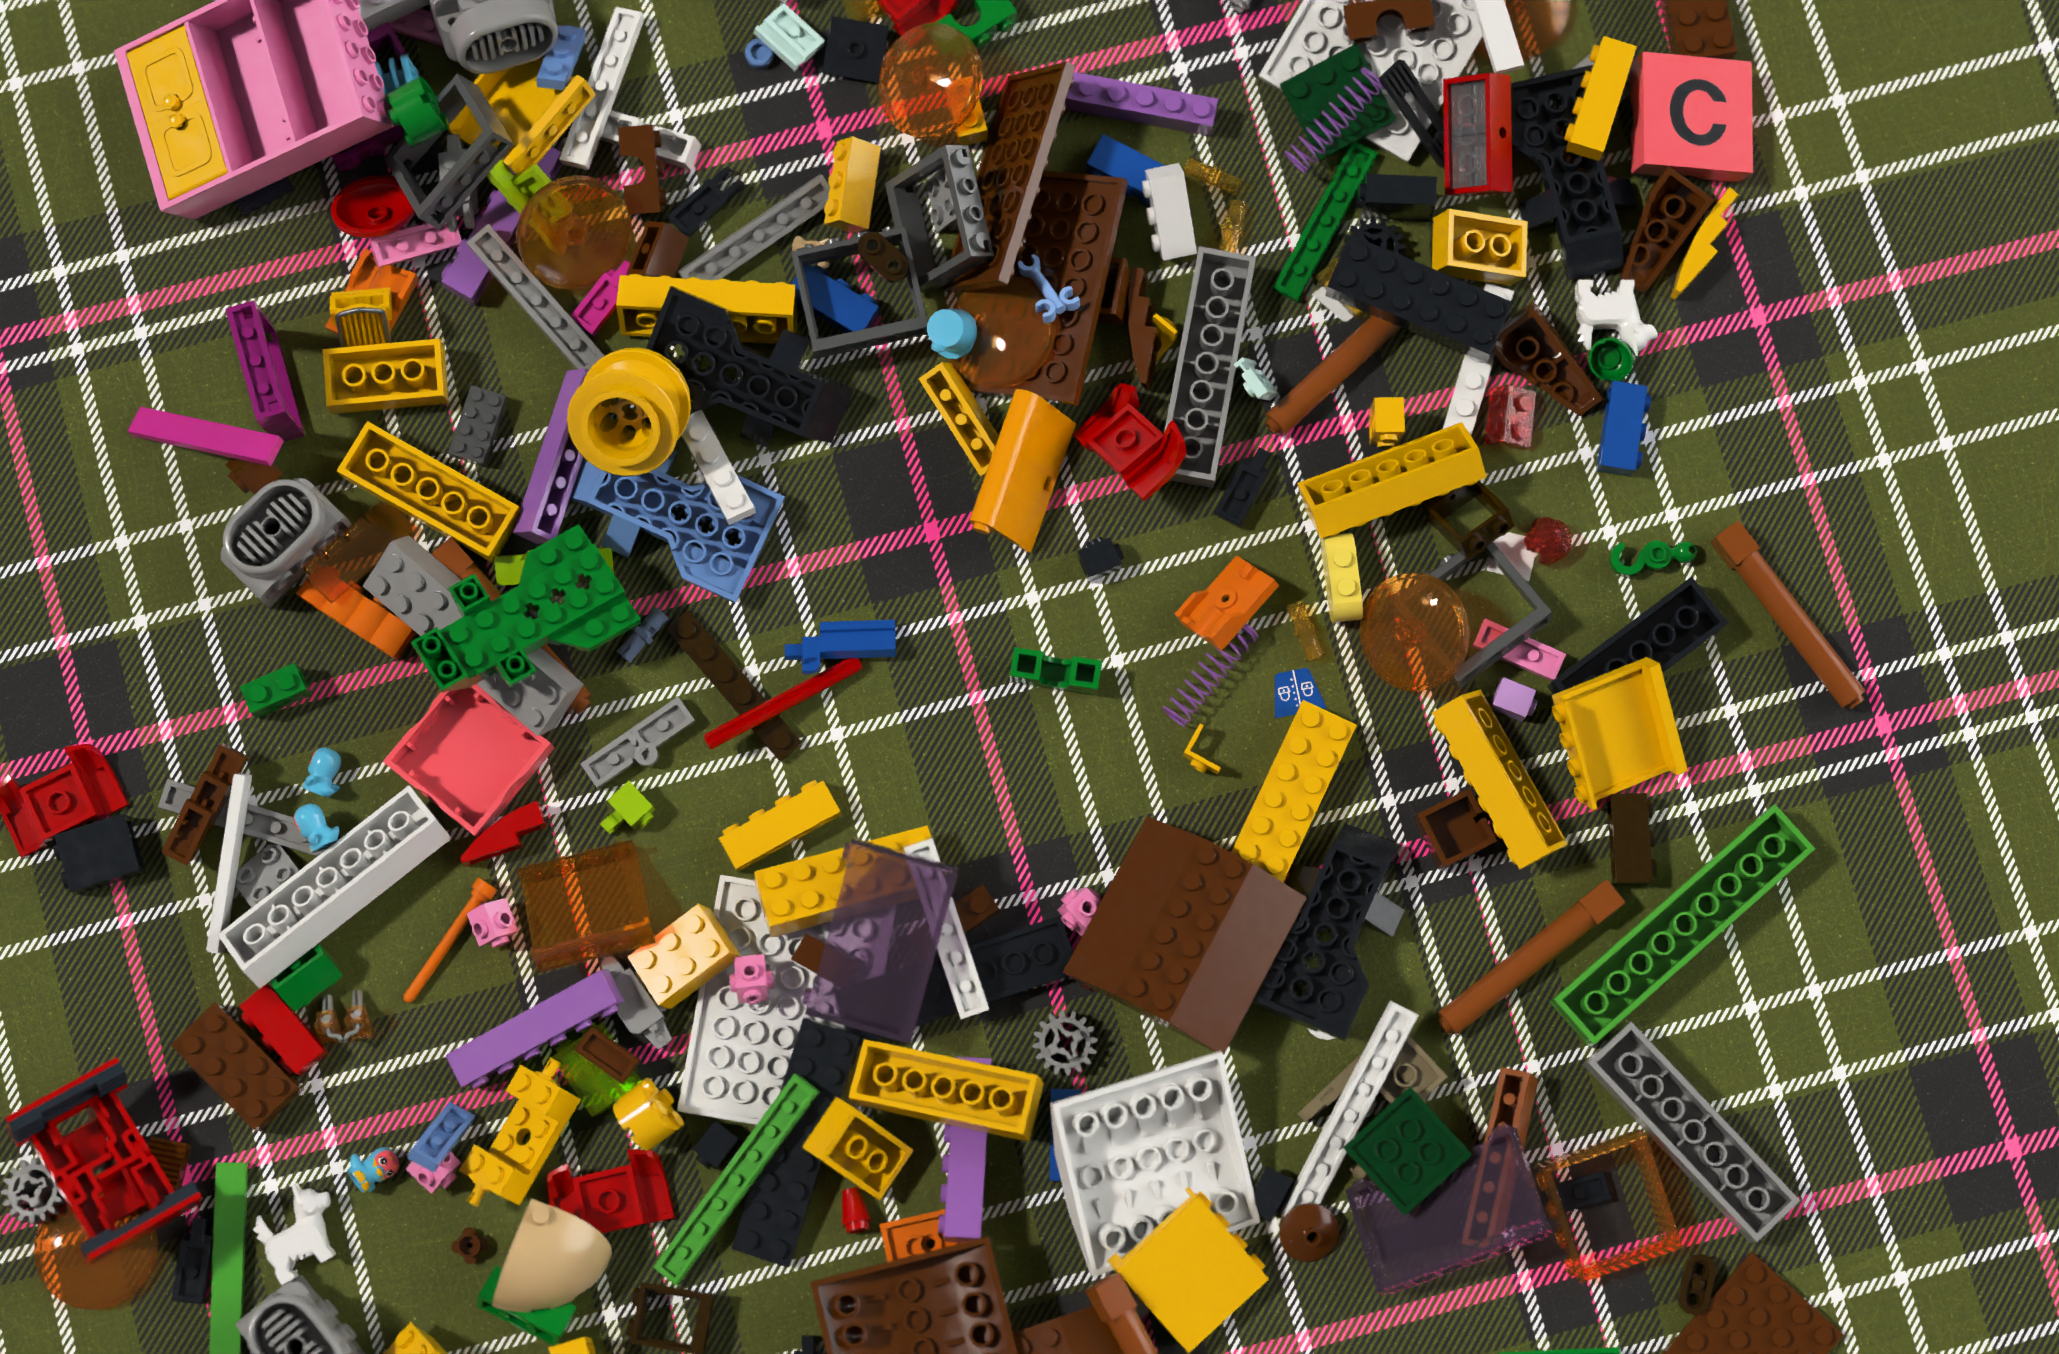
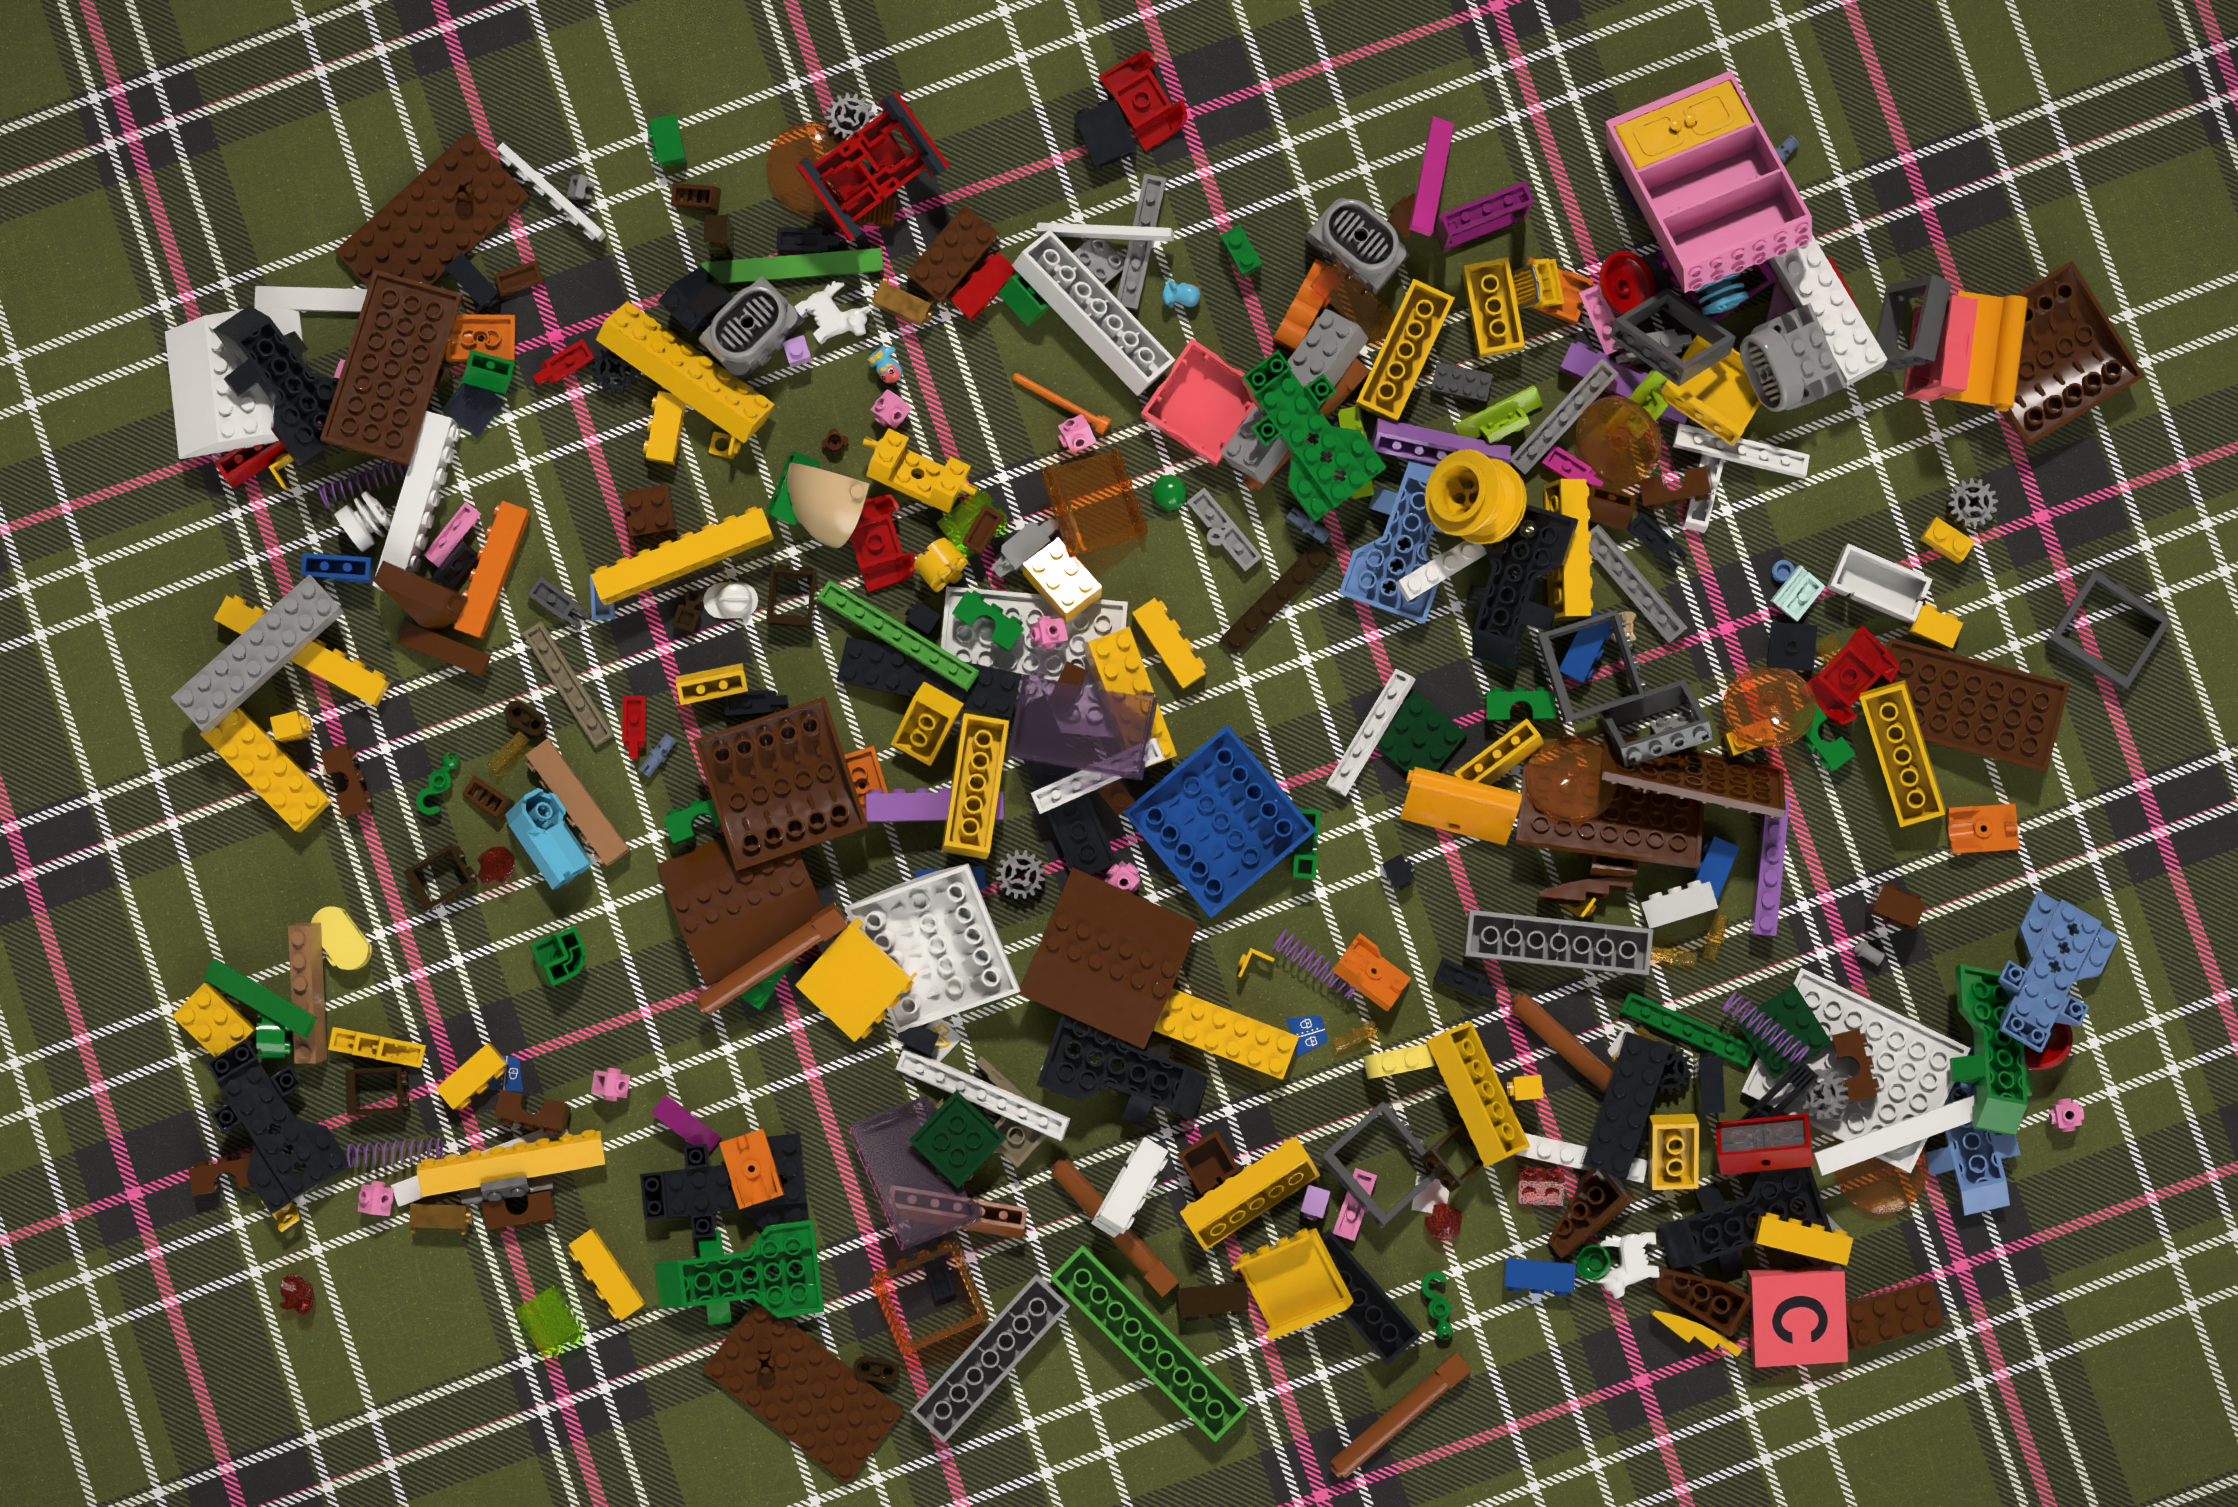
camera: 90 degrees right, 5 degrees up
(204, 805) = (1147, 208): reddish brown slope -> none
(294, 1139) = (903, 304): none -> pearl gold brick
(312, 825) = (1138, 291): medium azure animal -> none
(342, 1286) = (797, 351): none -> lavender brick
(357, 1021) = (994, 340): clear orange piece -> none
(417, 111) = (1697, 309): green brick -> none
(441, 1137) = (912, 412): medium blue plate -> none
(505, 834) = (1145, 436): red slope -> none
(529, 379) = (1502, 417): none -> lime bracket
(535, 1028) = (999, 474): medium lavender brick -> none
(561, 59) = (1760, 417): medium blue plate -> none
(581, 809) = (1169, 492): none -> green hair
(629, 807) = (1173, 529): lime brick -> none
(709, 1076) = (972, 608): none -> green arch
(782, 702) = (1264, 637): red axle -> none
(844, 640) = (1316, 680): blue piece -> none
(852, 185) = (1680, 653): yellow brick -> none
(854, 1212) = (881, 726): red cone -> none
(882, 256) = (1618, 681): dark brown plate -> none
(899, 363) = (1540, 703): none -> green arch
(918, 578) = (1370, 732): none -> white tile
(928, 519) = (1419, 736): none -> dark green plate
(952, 332) = (1565, 741): medium azure hat -> none
(1017, 777) = (1219, 821): none -> blue slope
(1053, 302) = (1593, 819): light blue bar -> none
(1133, 443) = (1489, 888): red piece -> none
(1256, 381) = (1549, 982): light aqua plate -> none
(1274, 1157) = (947, 1039): none -> white sticker
(1302, 1221) = (901, 1067): reddish brown dish -> none
(1414, 631) = (1359, 1119): clear orange dish -> none
(1426, 47) = (1825, 1093): none -> light grey gear
(1483, 930) = (1129, 1187): none -> white piece

